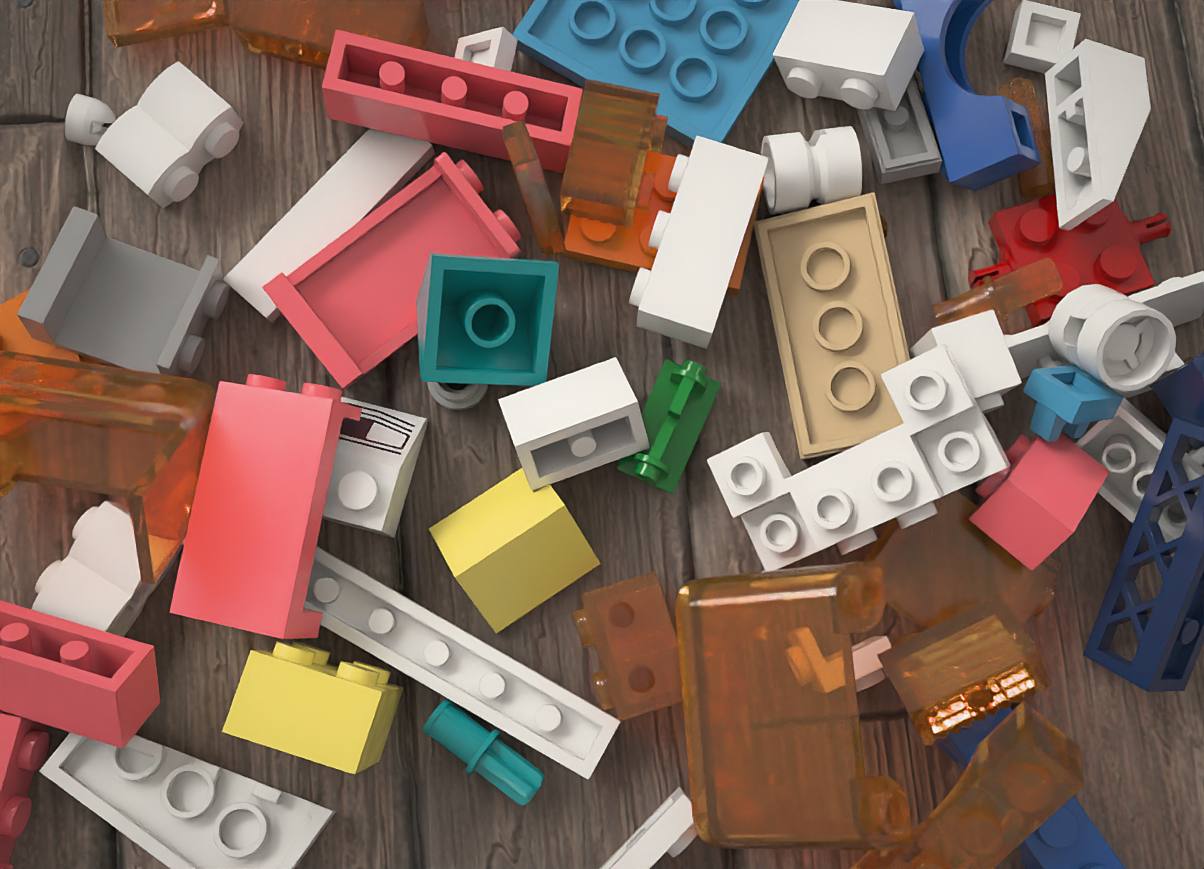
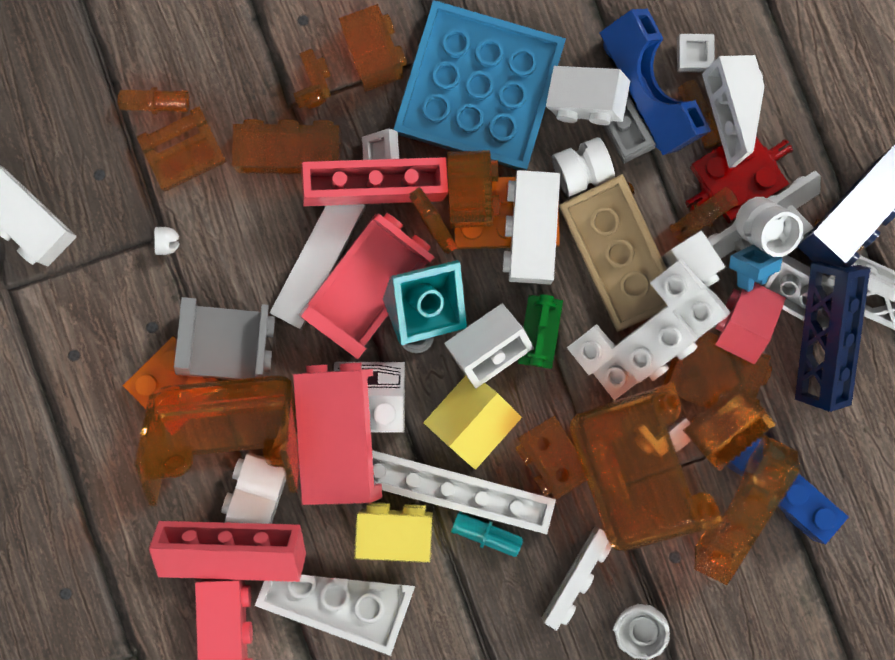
camera: 15 degrees left, 5 degrees up
(171, 135) = (216, 237): white brick -> none

